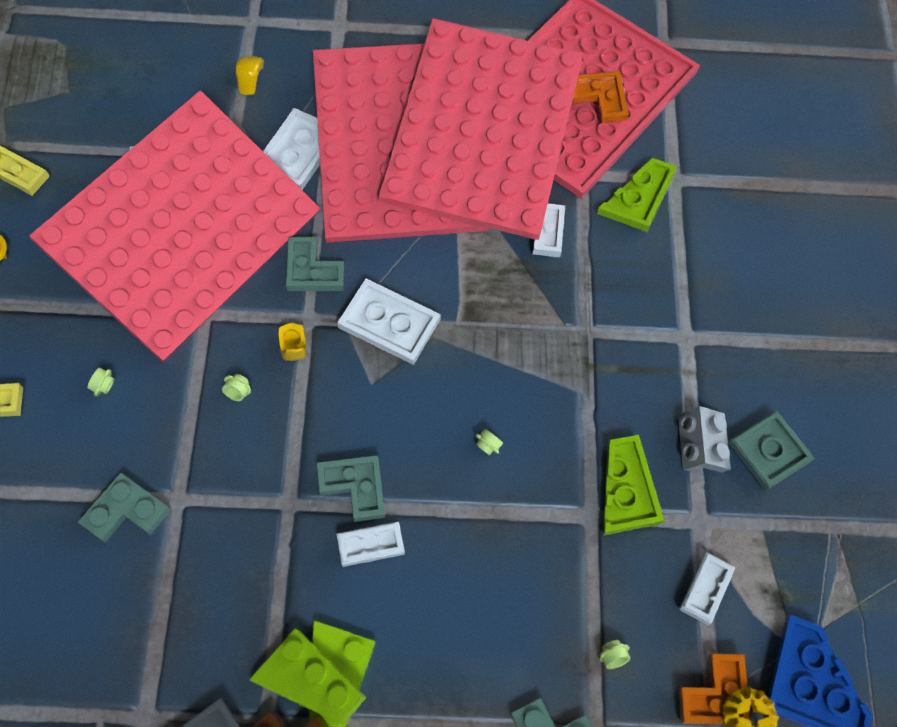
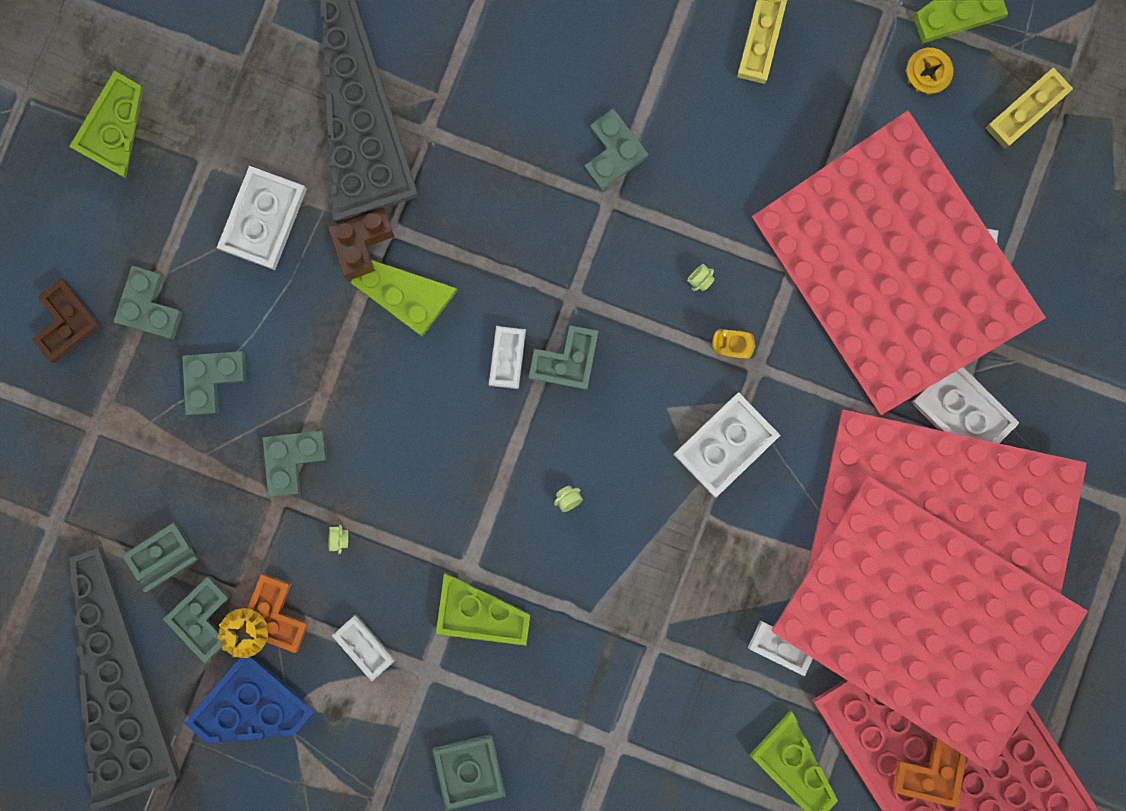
camera: 110 degrees right, 20 degrees up
(101, 382) = (746, 154): yellowish green plate -> none
(247, 73) = (1086, 386): yellow hair -> none
(307, 273) = (811, 377): sand green plate -> none
(309, 678) = (406, 270): lime wing -> none
(704, 440) = (501, 710): light grey bracket -> none

